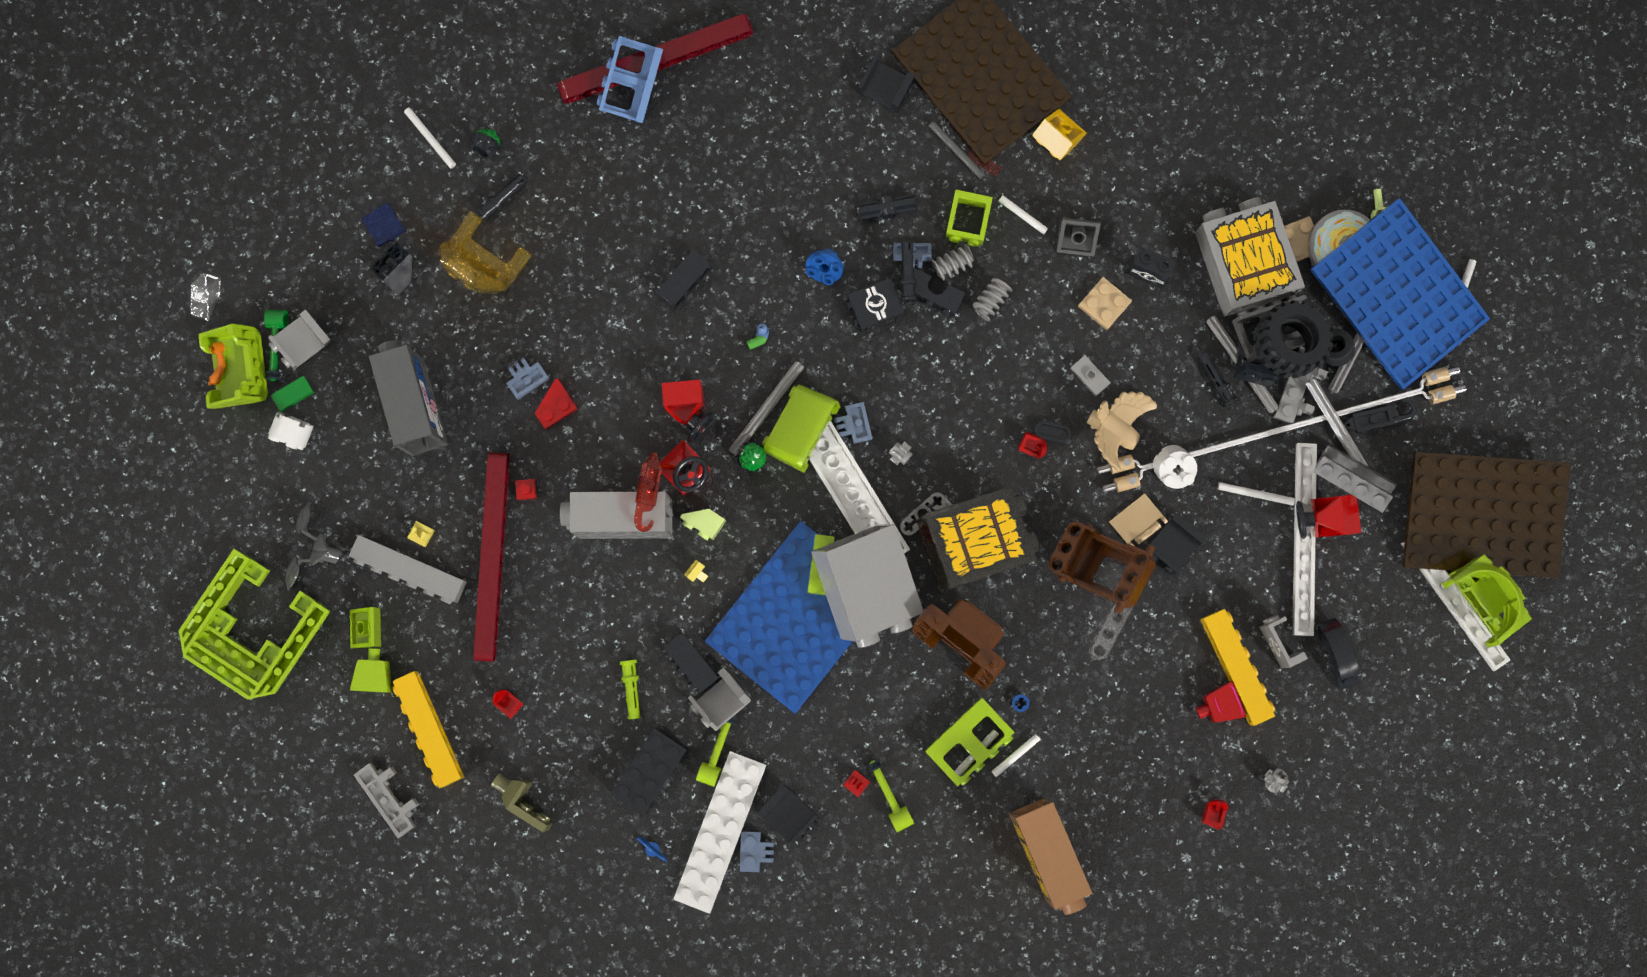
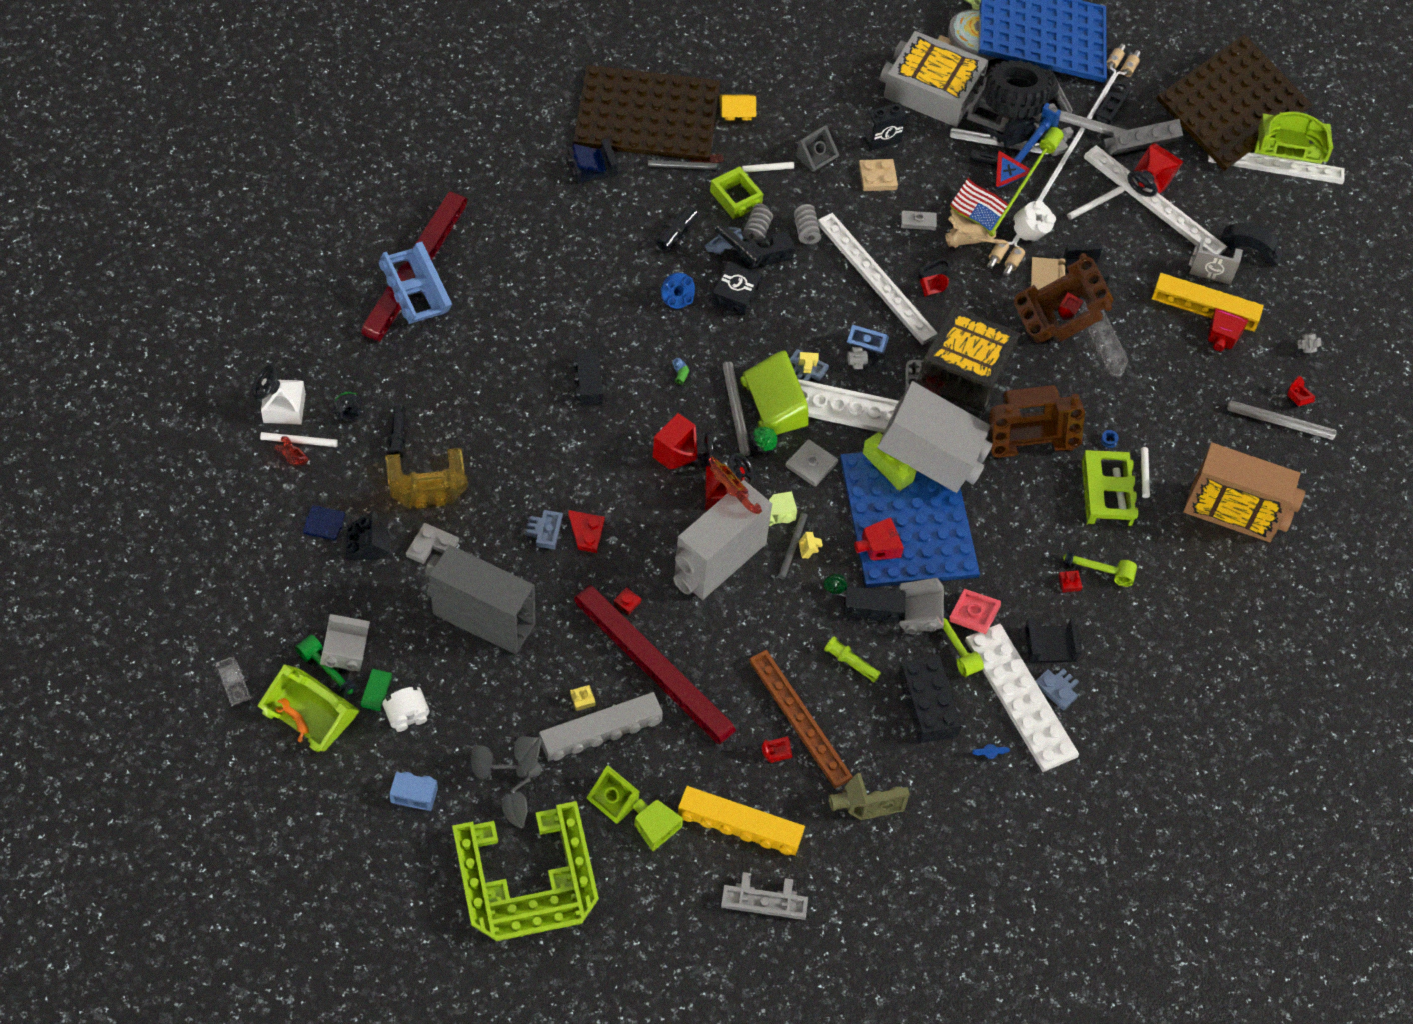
camera: 55 degrees left, 25 degrees down
(242, 495) = (413, 791): none -> medium blue brick
(411, 148) = (292, 454): none -> clear red plate
(440, 308) = (429, 539): none -> light grey plate
(441, 91) = (281, 399): none -> white piece
(547, 696) = (800, 719): none -> dark orange plate
(681, 620) = (835, 584): none -> dark green hat
(687, 559) = (792, 546): none -> dark grey bar
(743, 621) = (880, 541): none -> red torso
(756, 739) = (975, 611): none -> coral plate
(773, 506) = (811, 463): none -> light grey plate
(854, 422) = (808, 360): none -> light yellow tile
(883, 79) = (589, 158): none -> clear blue piece
(923, 446) = (868, 339): none -> medium blue brick
(995, 397) = (877, 279): none -> white plate
(1110, 569) = (1069, 307): none -> red plate
(1149, 413) = (987, 207): none -> flag
(1175, 818) = (1282, 420): none -> light grey axle
(1214, 402) = (1010, 169): none -> blue piece

